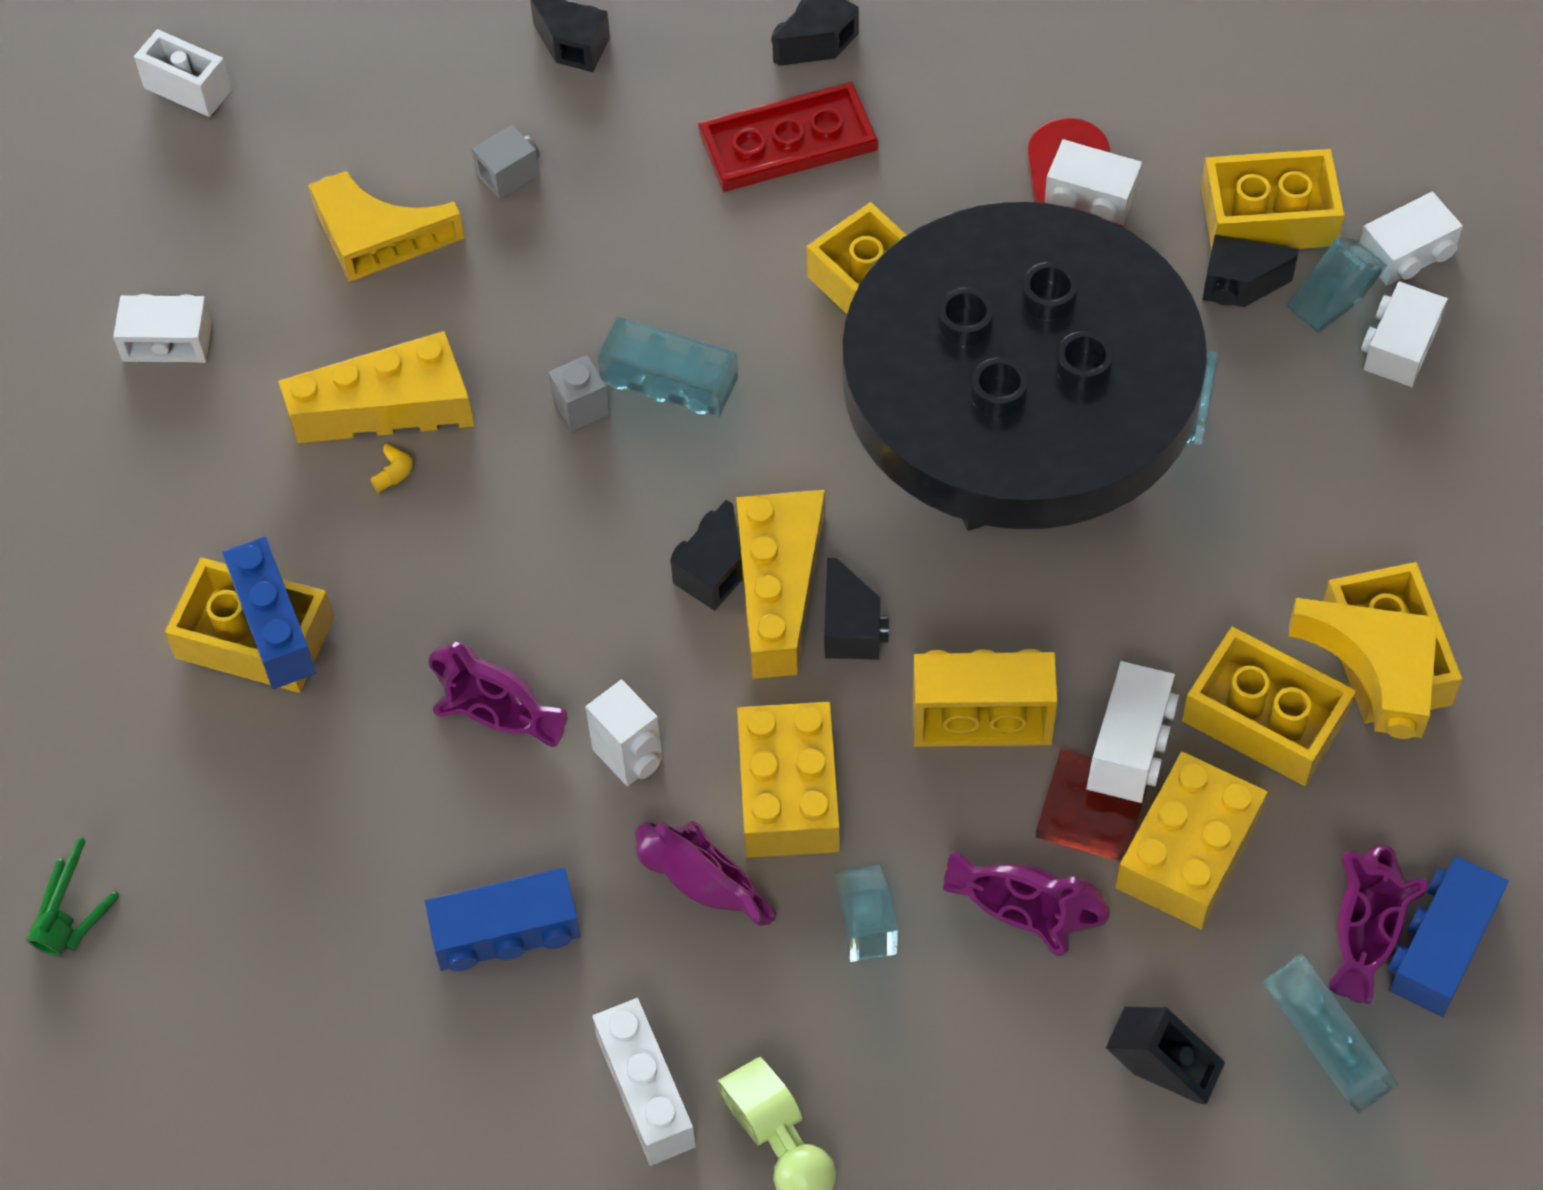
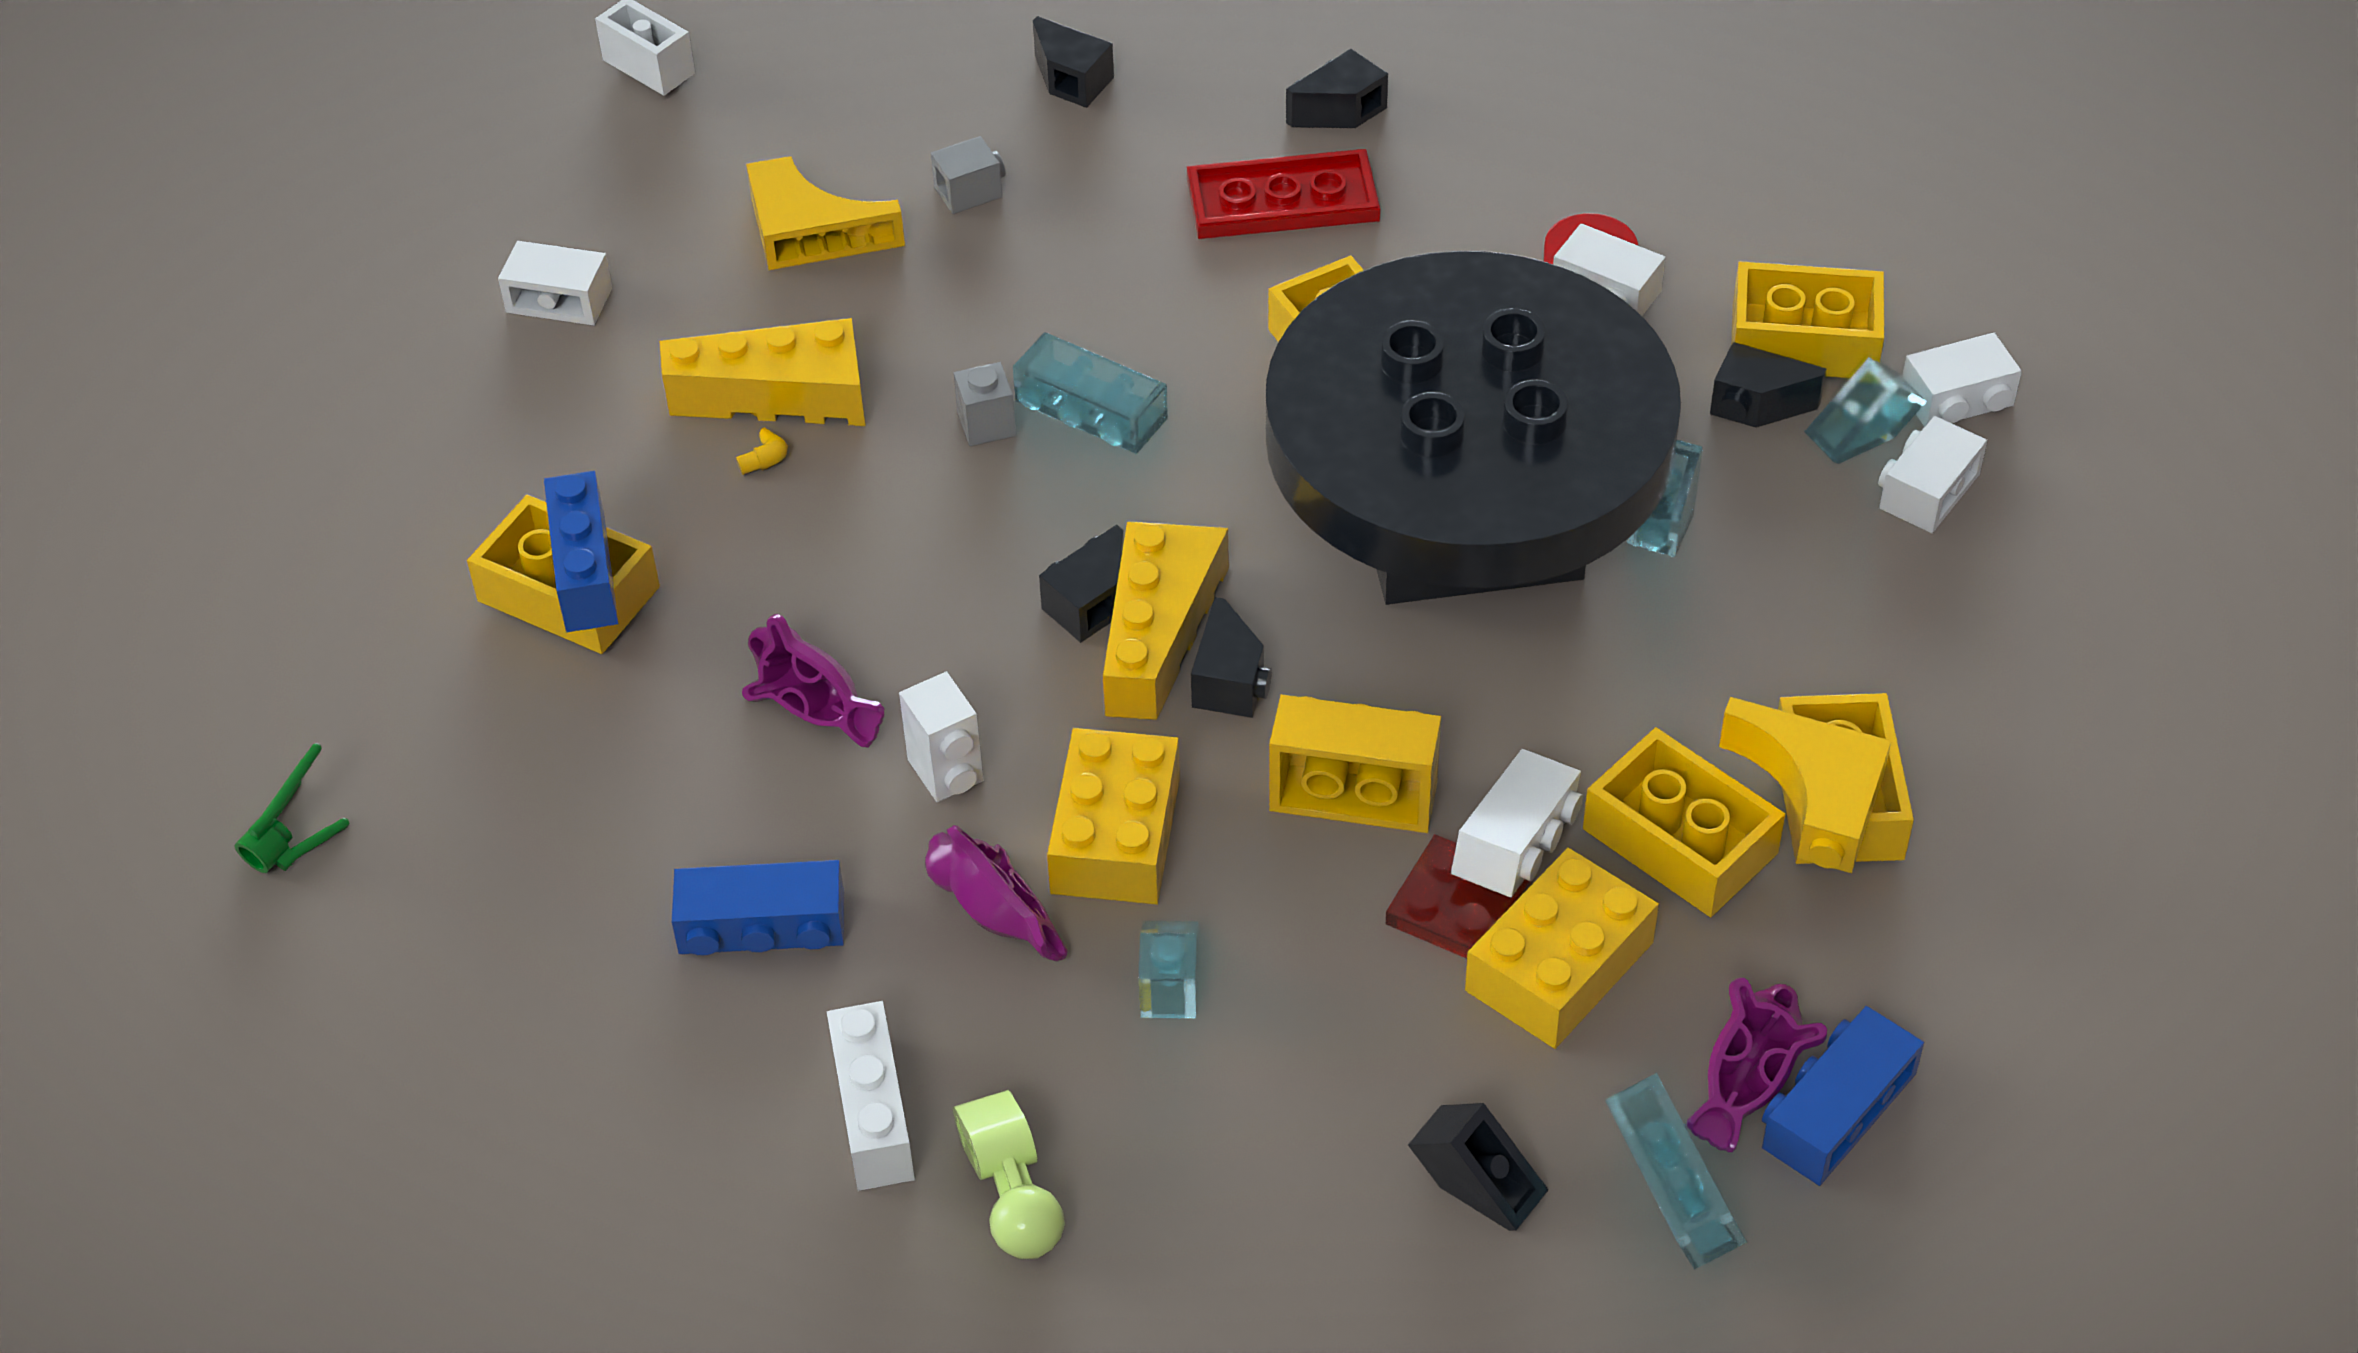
camera: 10 degrees right, 10 degrees down
(1029, 898) = (1360, 978): magenta animal -> none

